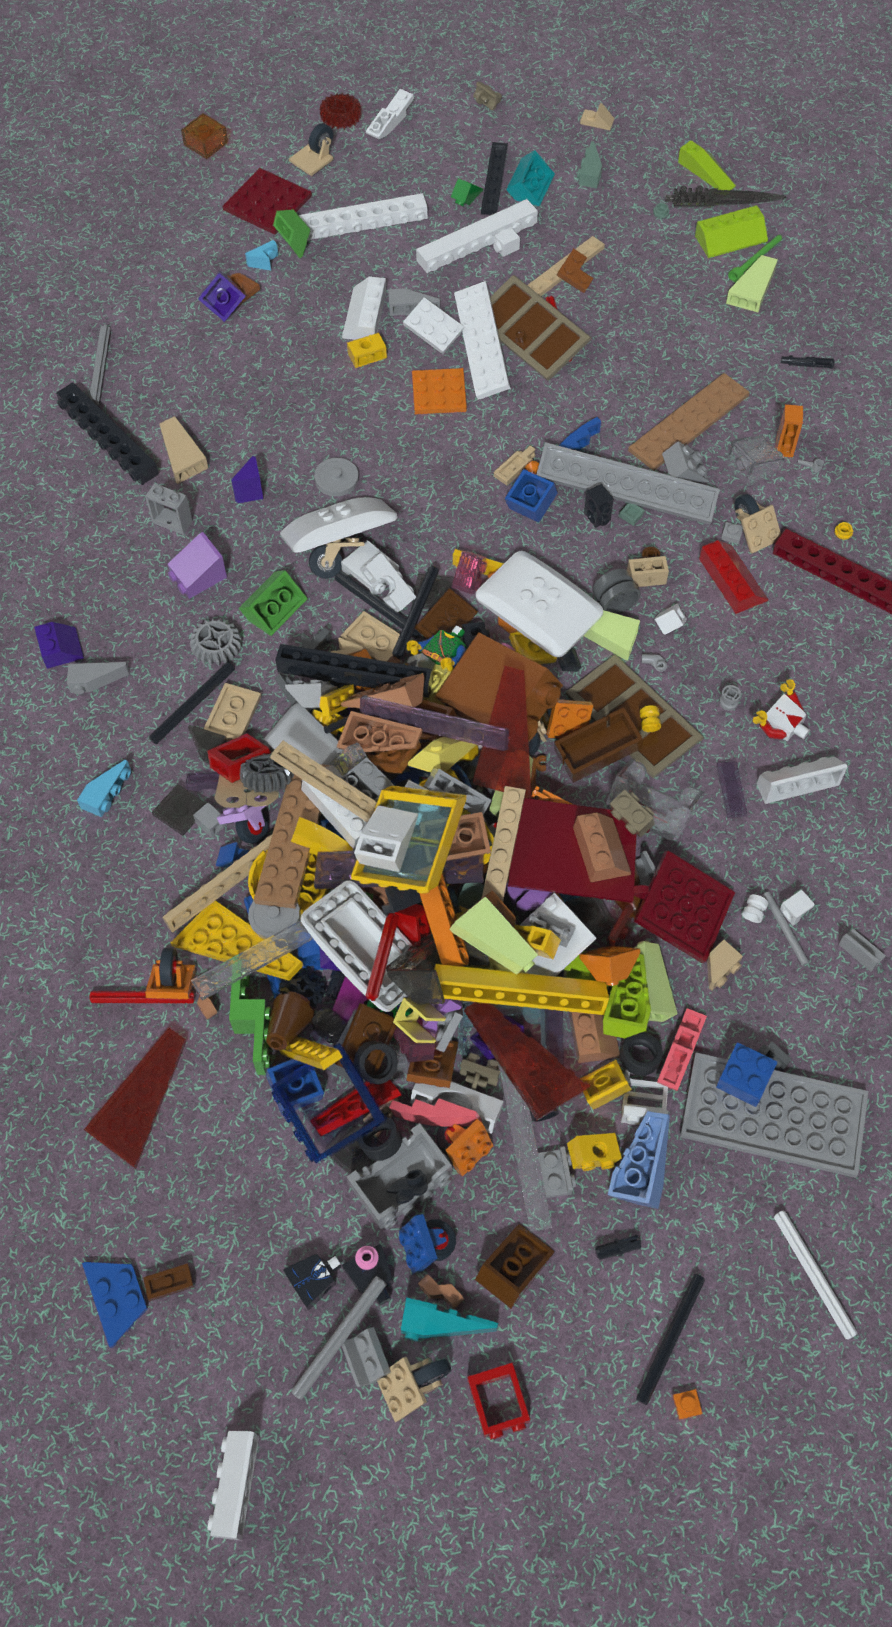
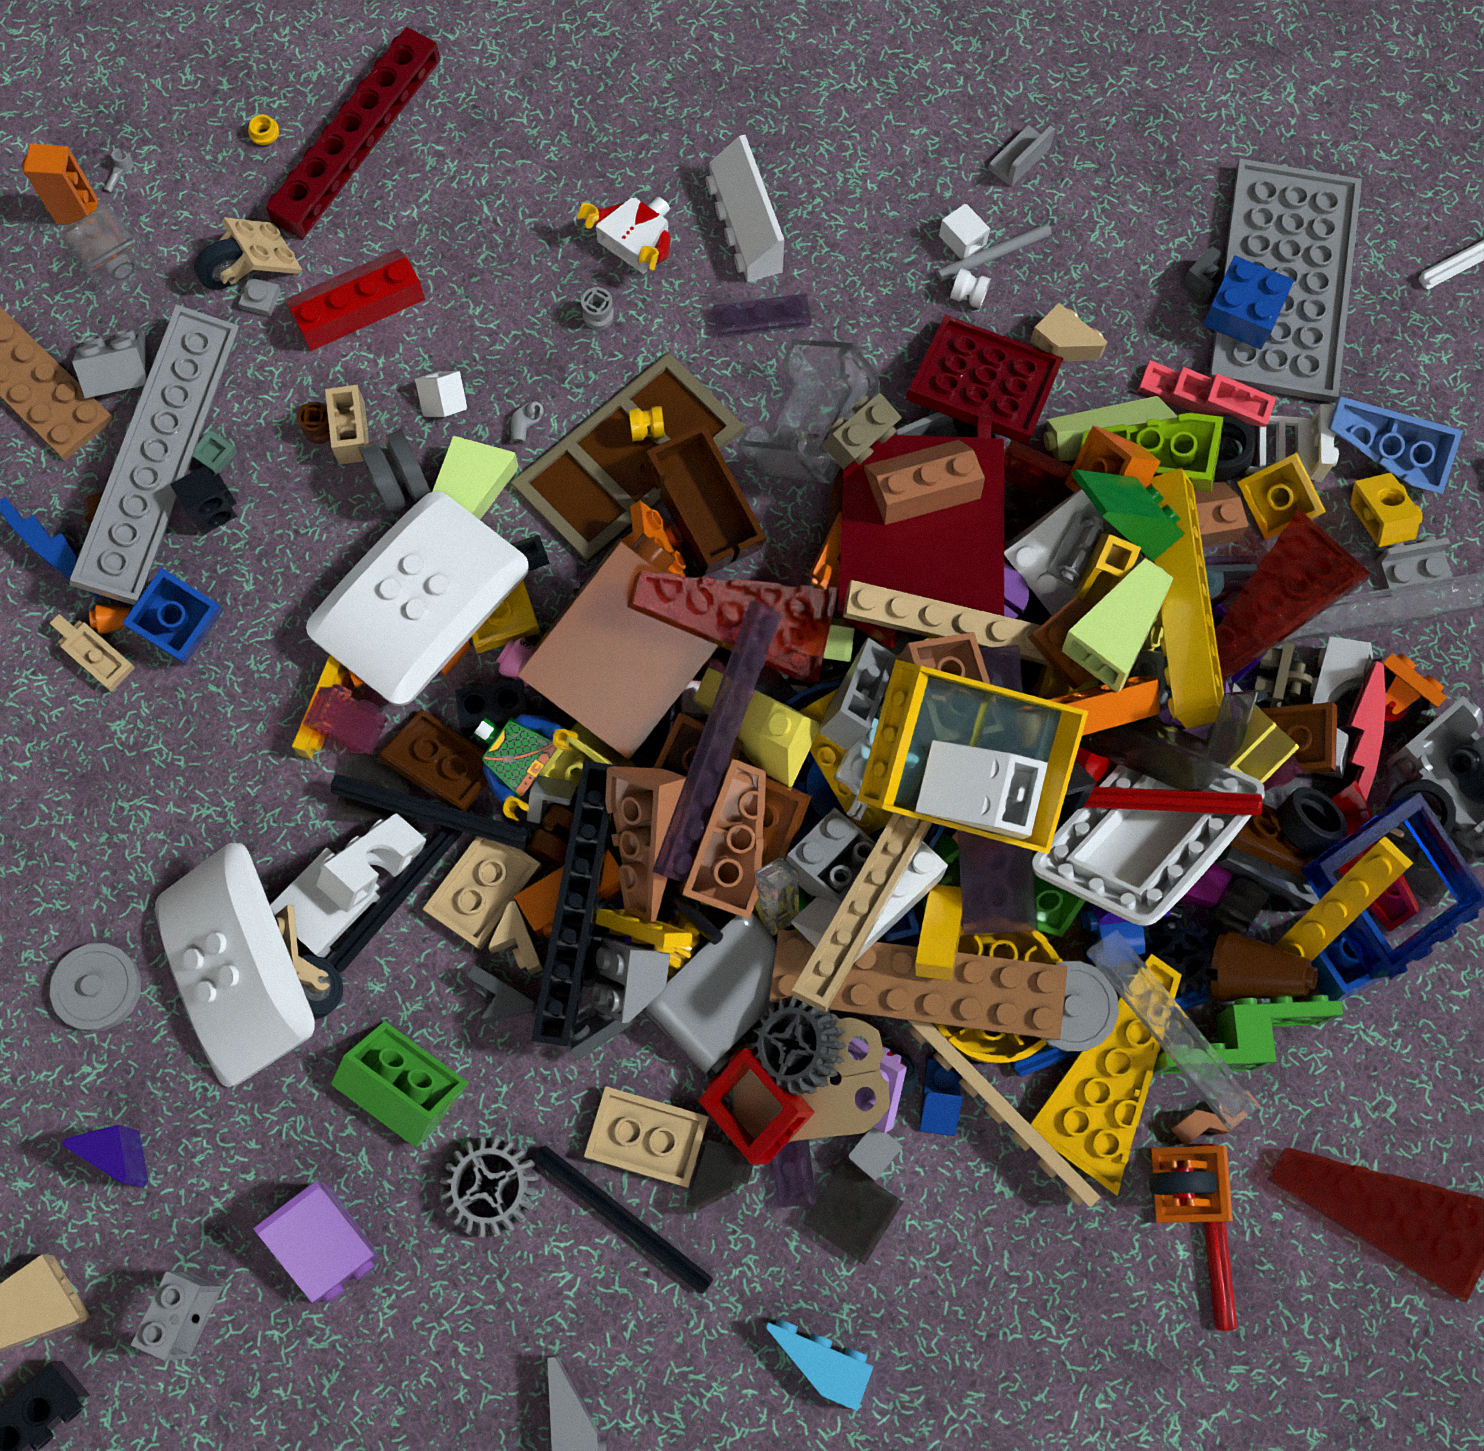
camera: 95 degrees left, 10 degrees up
(574, 951) = (1132, 510): none -> green slope

